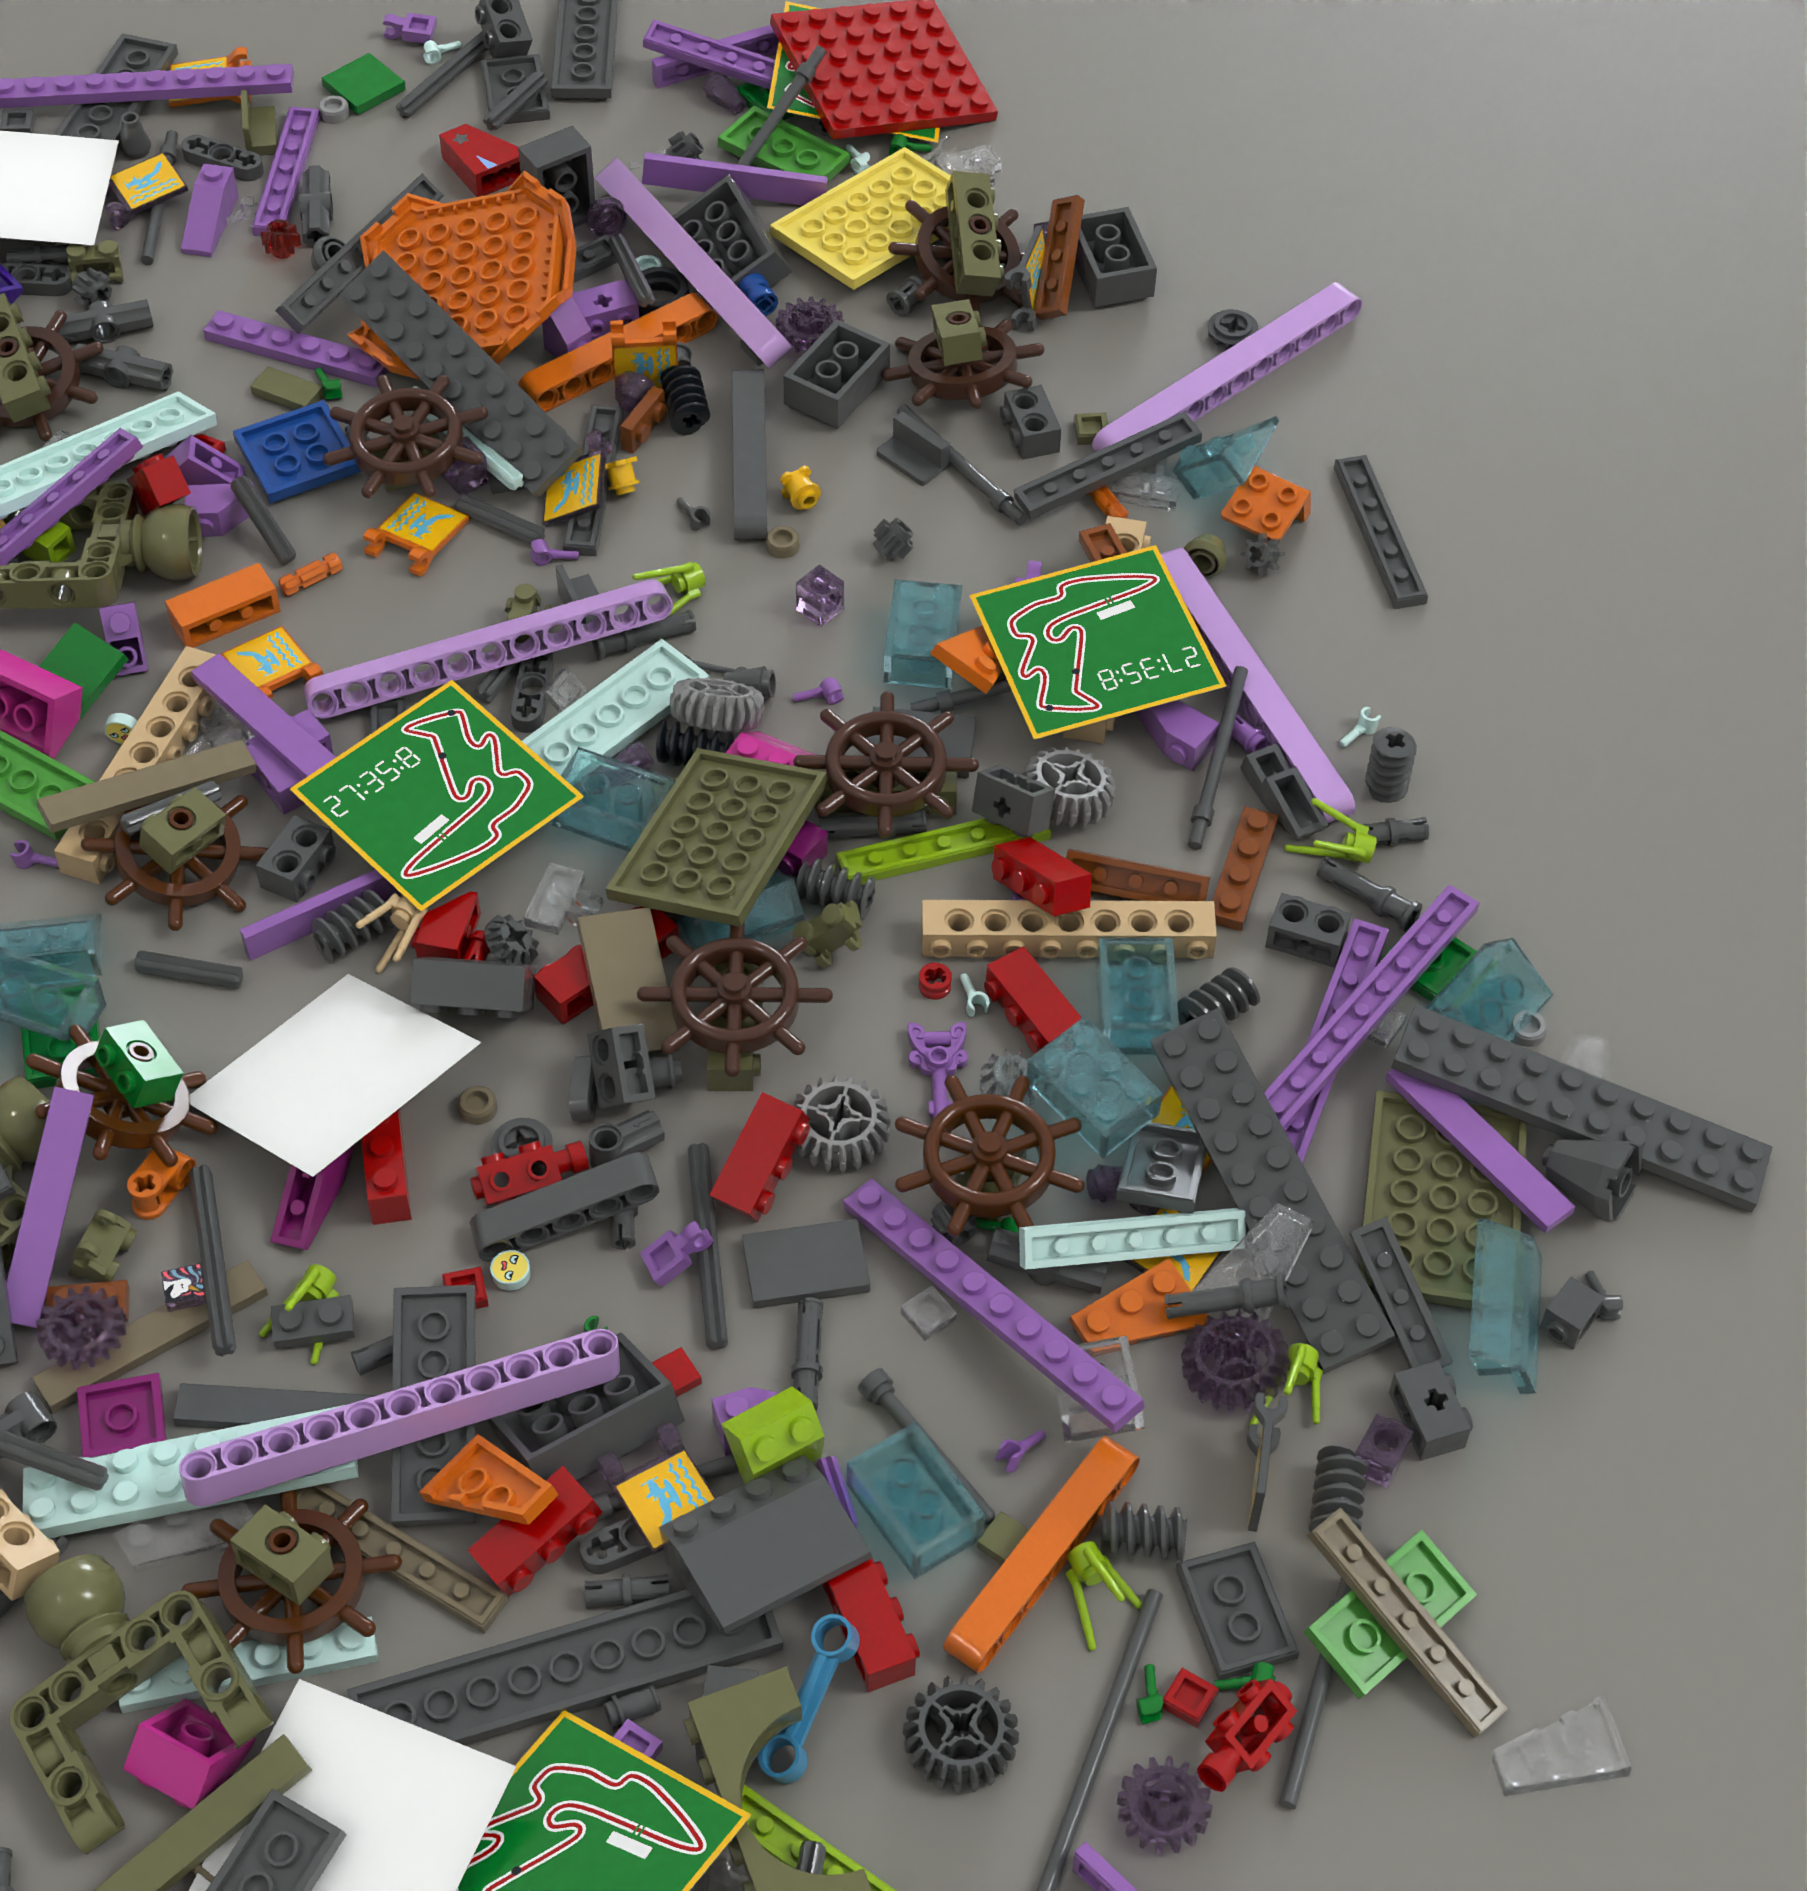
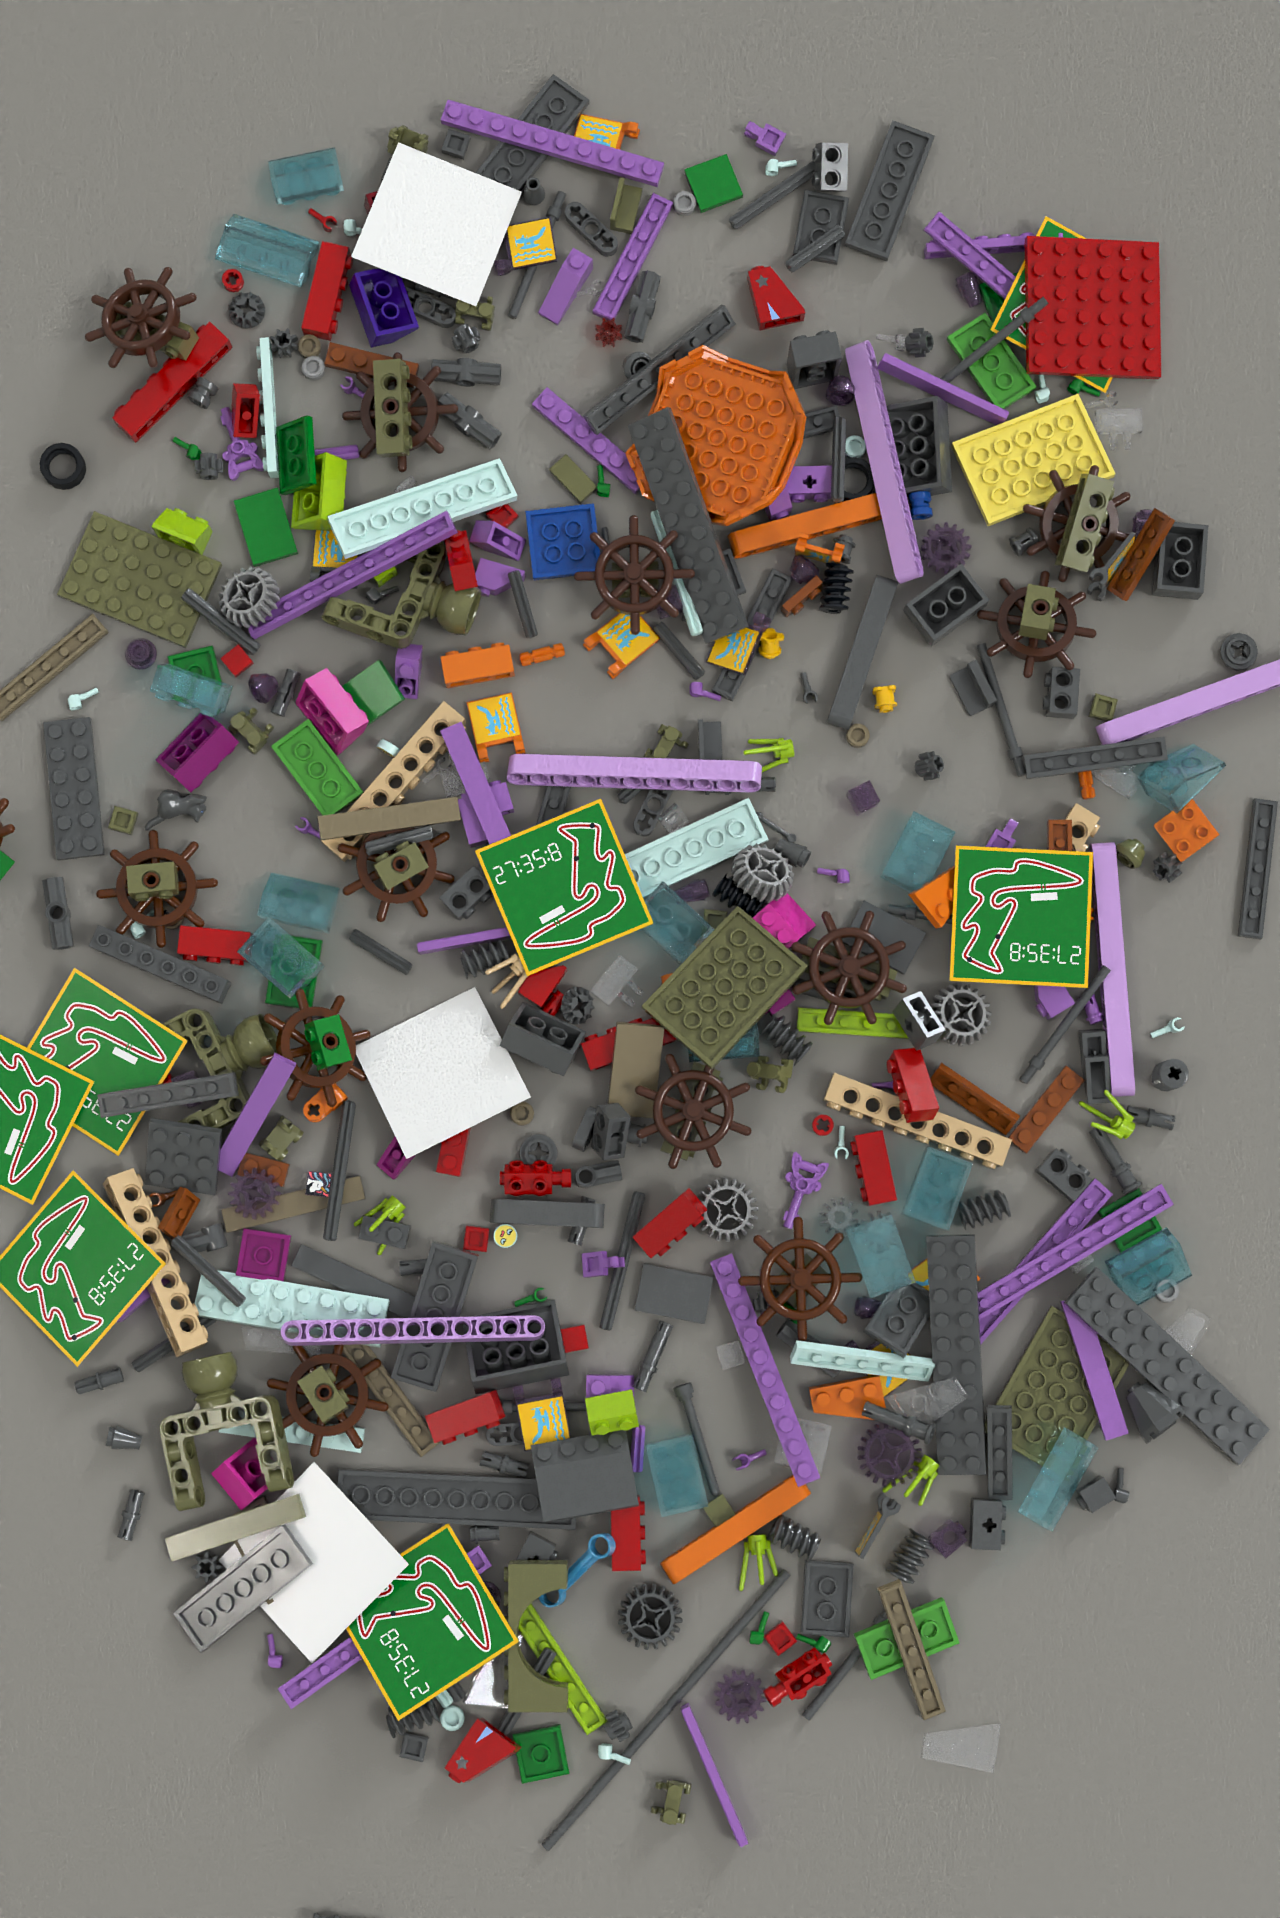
camera: 20 degrees right, 30 degrees up
(489, 1484) = (448, 1386): orange wing -> none

